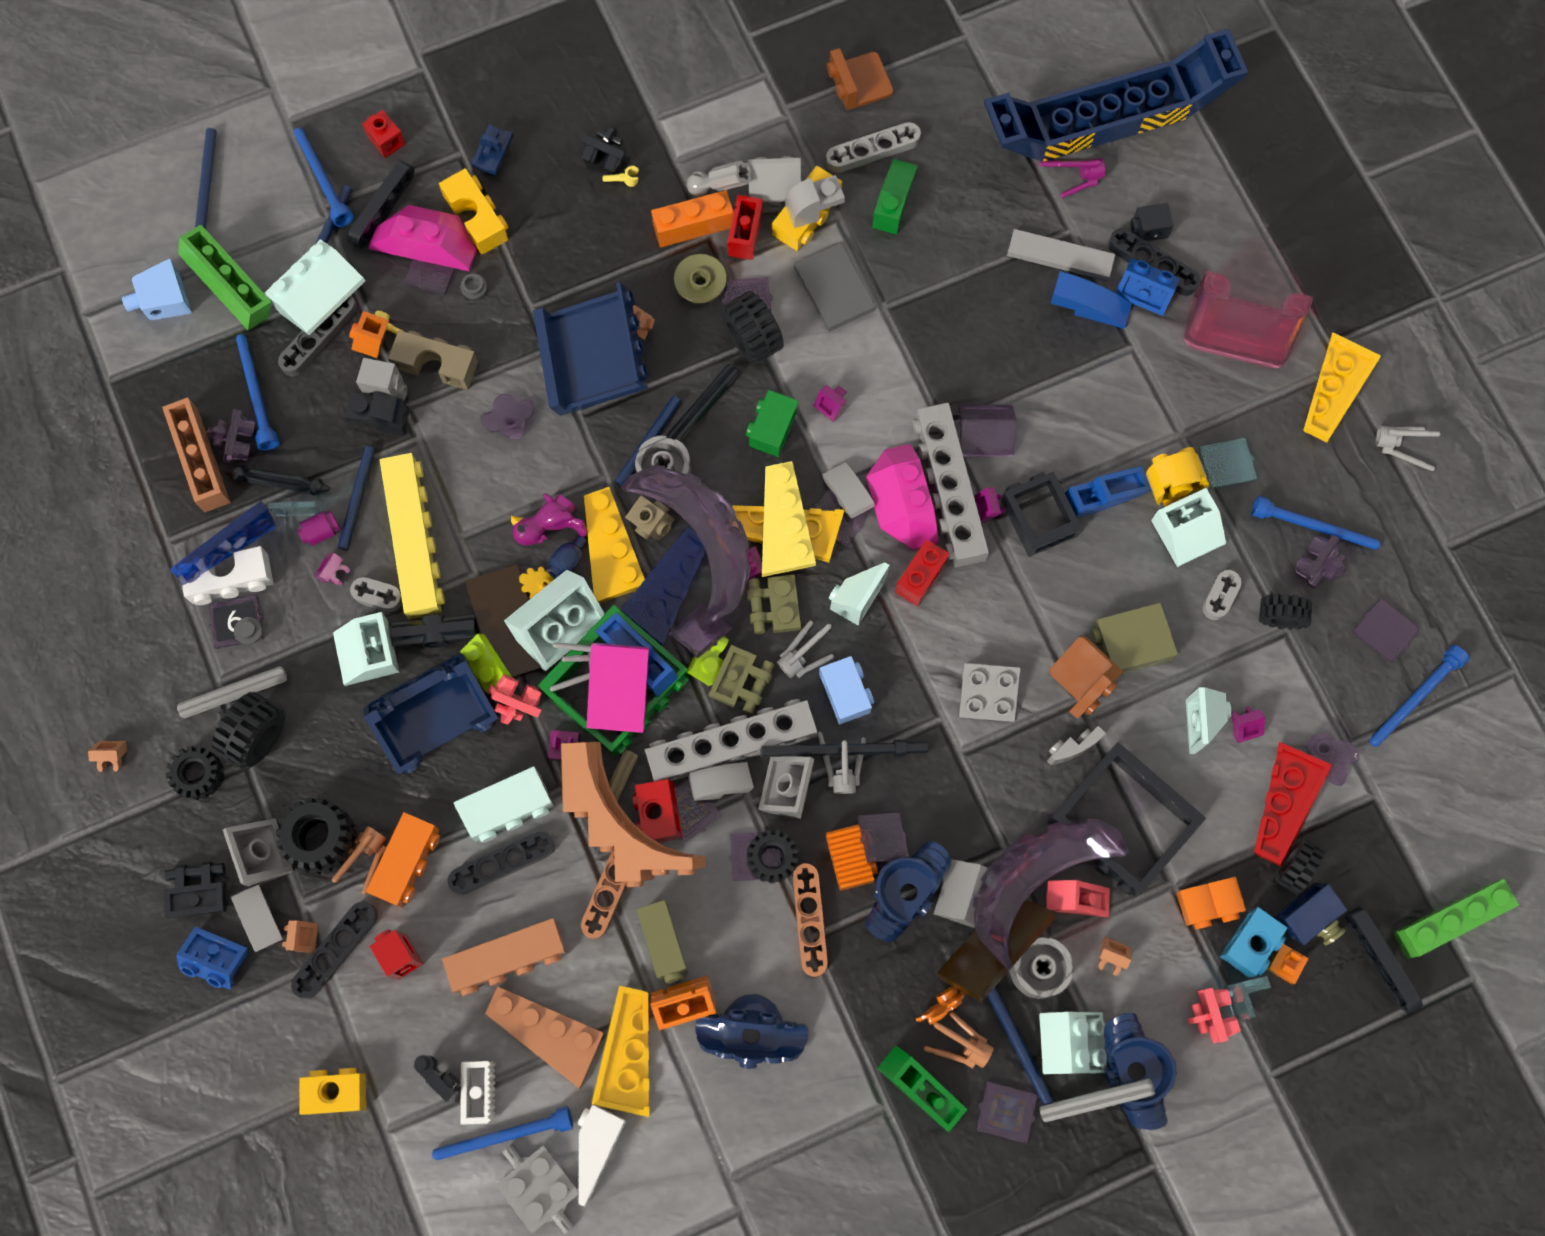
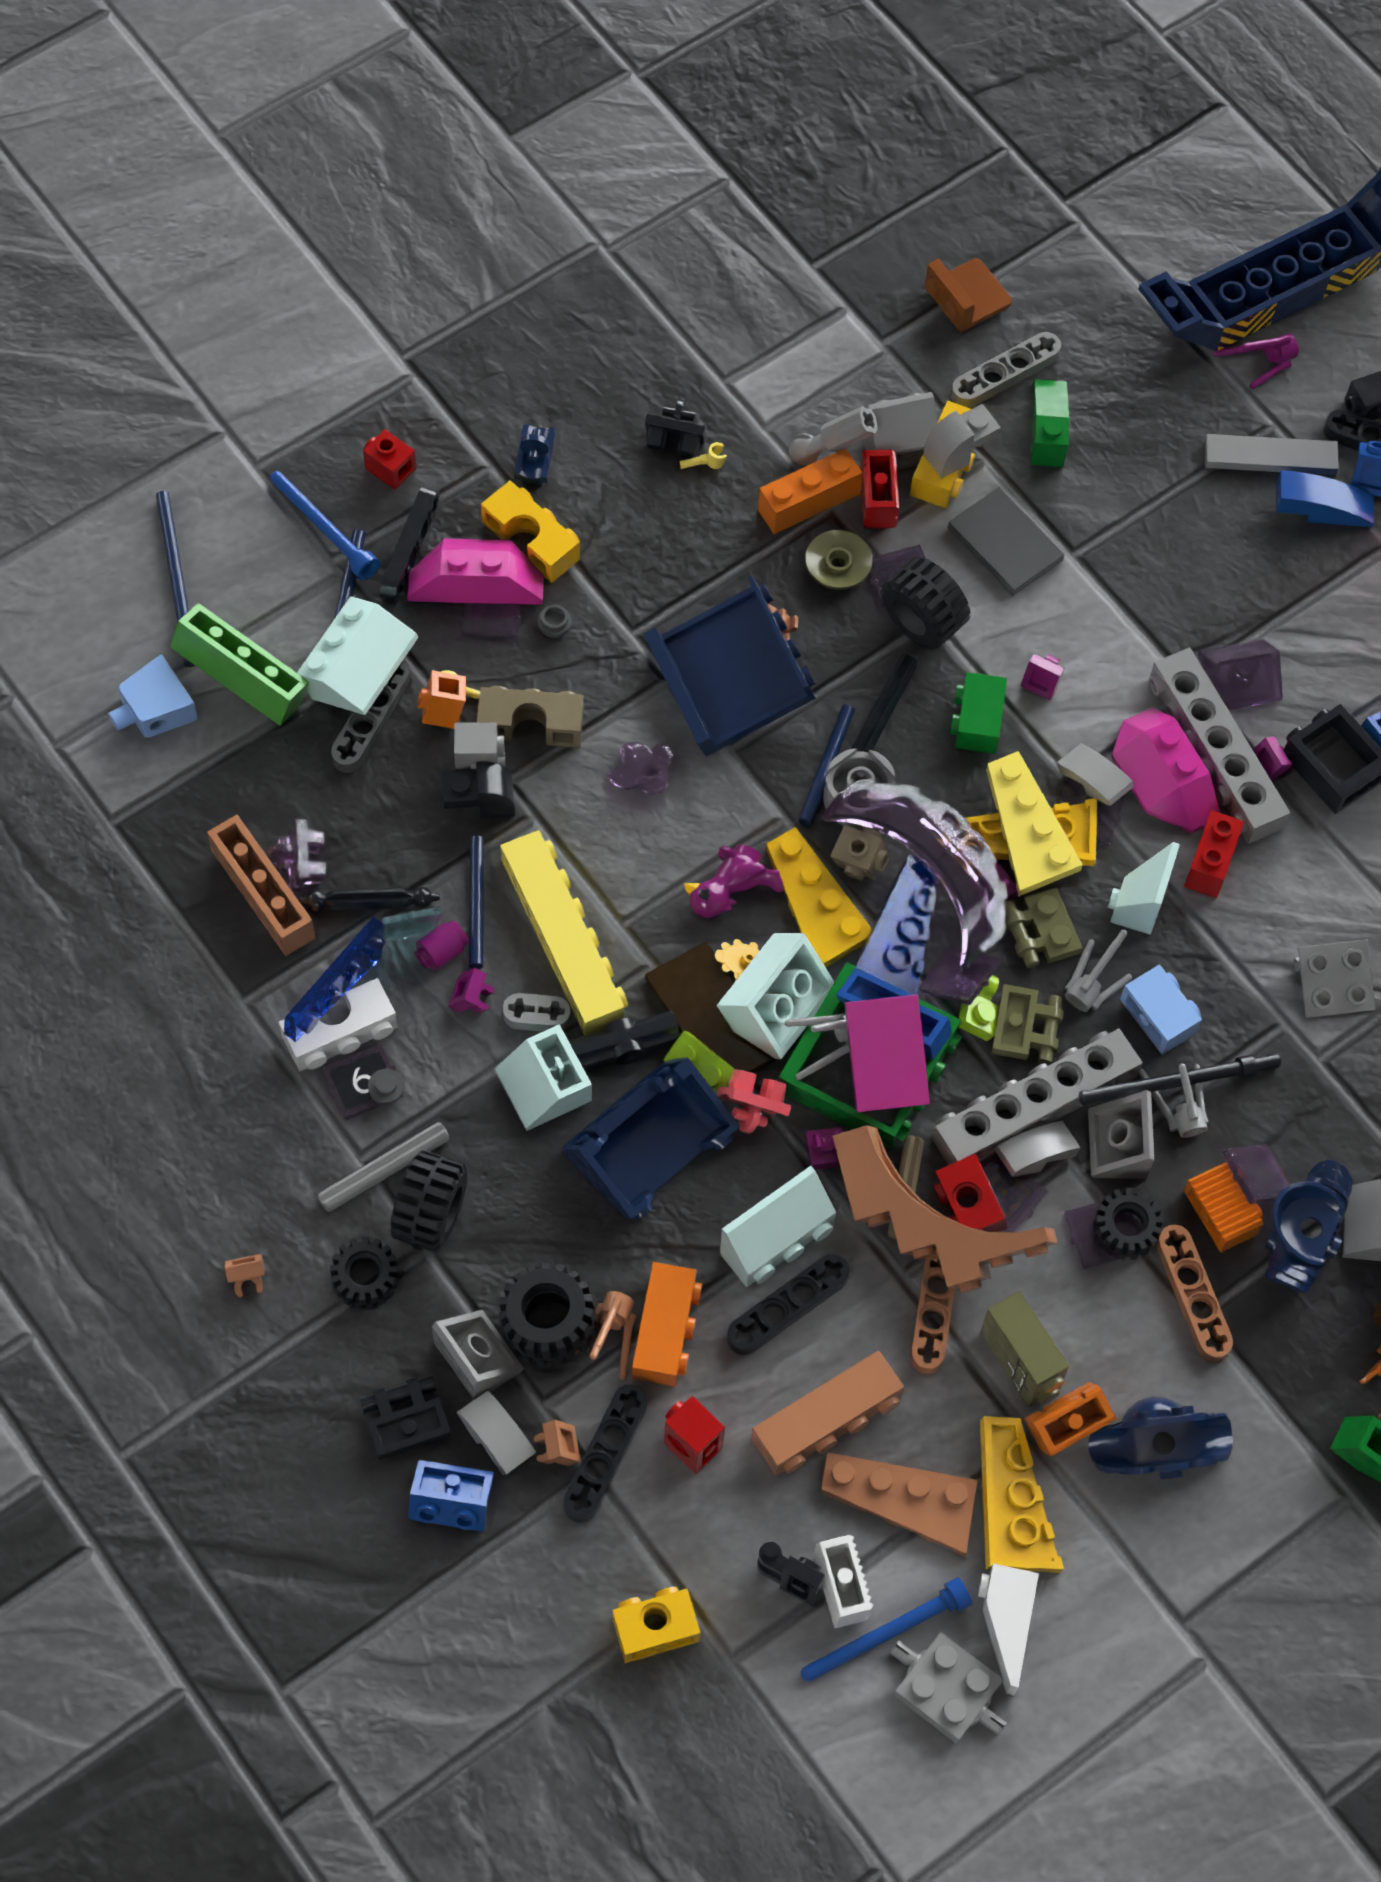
camera: 15 degrees left, 10 degrees down
(266, 437) = (341, 850): blue piece -> none
(566, 557) = (765, 921): dark blue plant -> none

